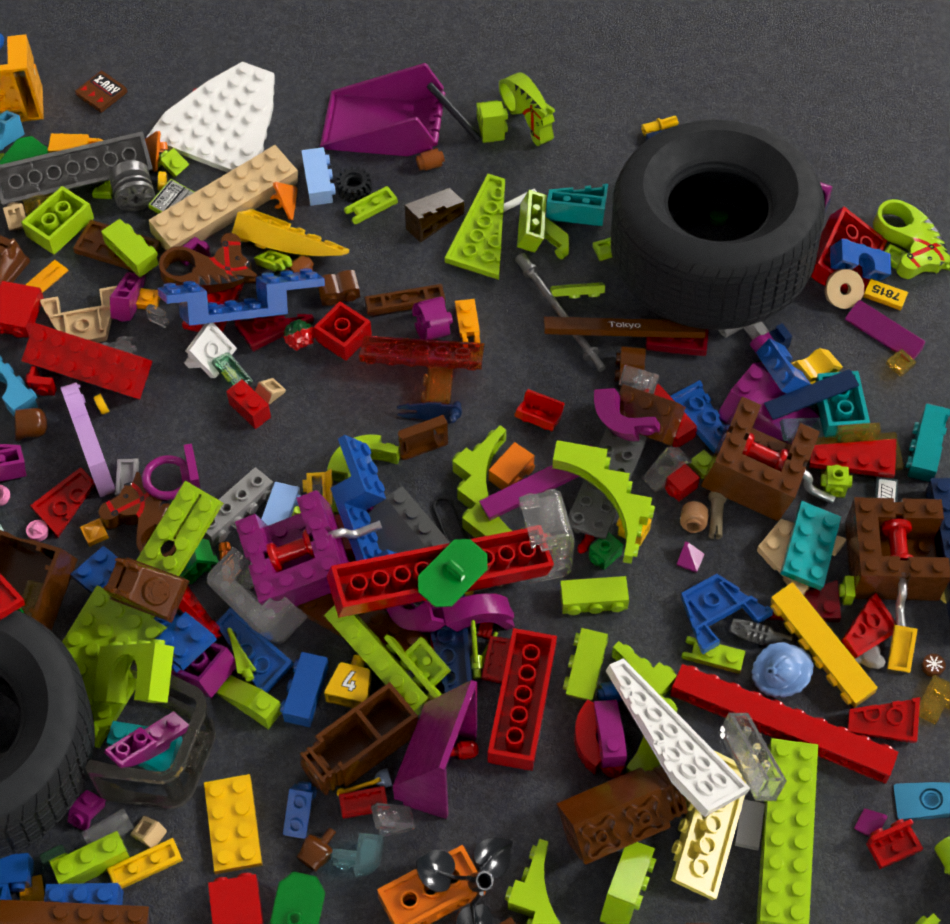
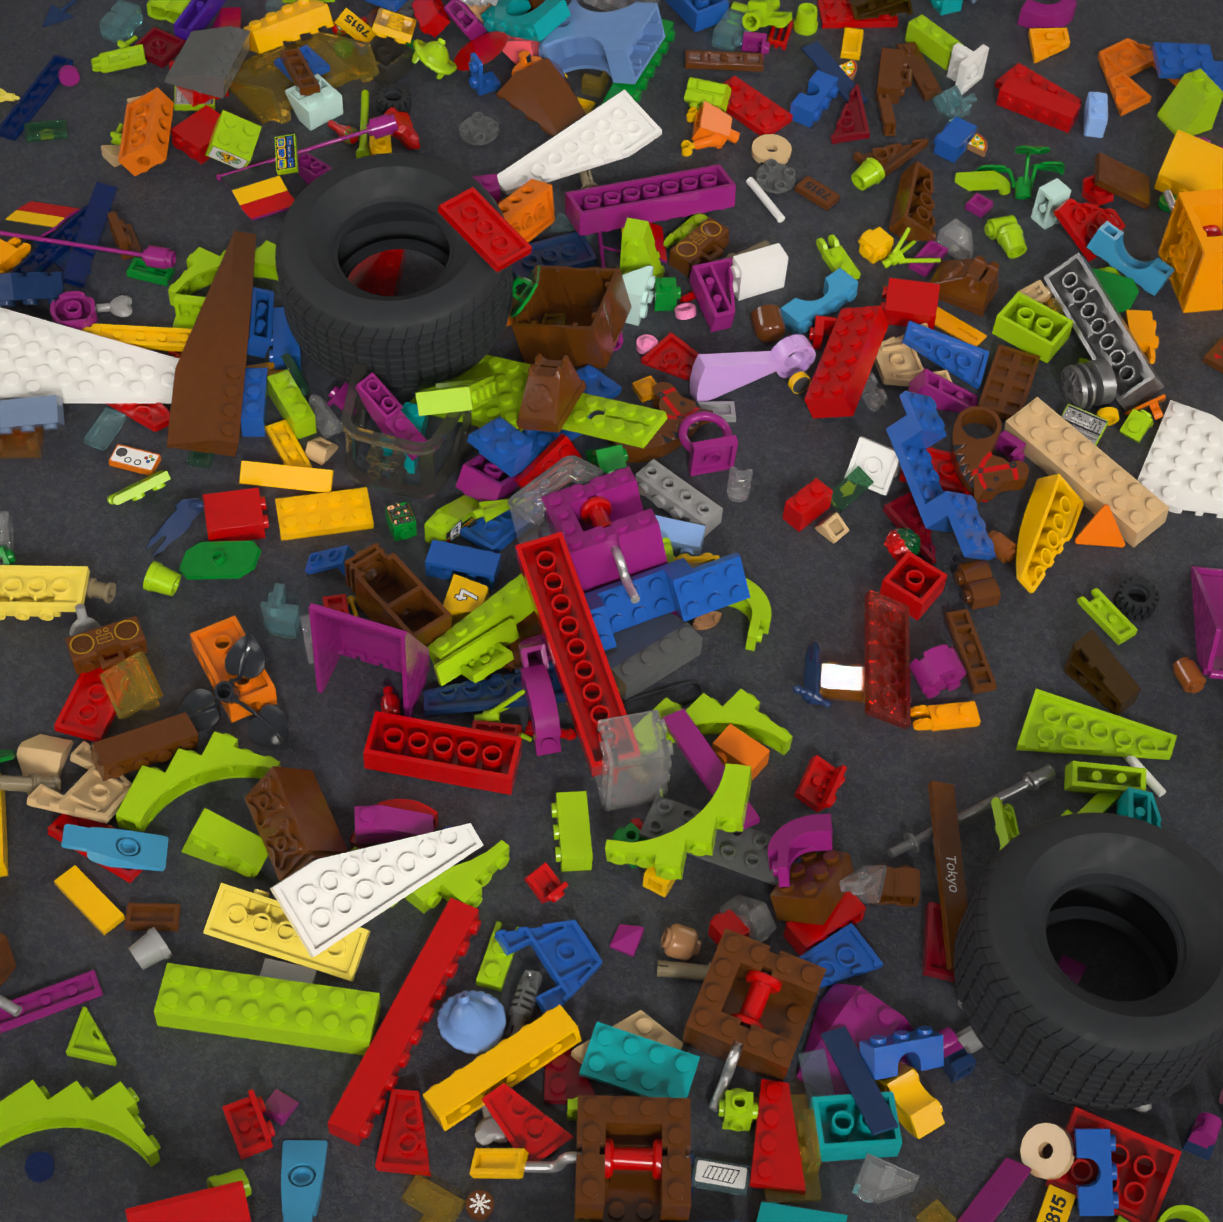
camera: 85 degrees right, 5 degrees down
(79, 285) = (950, 353): none -> blue wing
(130, 247) = (1001, 385): lime brick -> none
(147, 297) = (947, 414): light orange plate -> none
(186, 862) = (286, 476): none -> yellow tile
(225, 458) = (739, 484): none -> clear plate
(251, 747) = (400, 521): none -> brick
(273, 261) = (1002, 517): lime hinge -> none
(316, 851) = (291, 576): reddish brown piece -> none
(318, 176) = (1141, 560): light blue brick -> none
(421, 438) = (770, 660): reddish brown container -> none
(452, 573) = (565, 652): green shield -> none
(585, 664) = (489, 815): lime wedge -> none
(648, 615) = (545, 884): none -> red bracket
(752, 757) = (354, 964): clear brick -> none
(879, 393) = (882, 1181): none -> clear slope

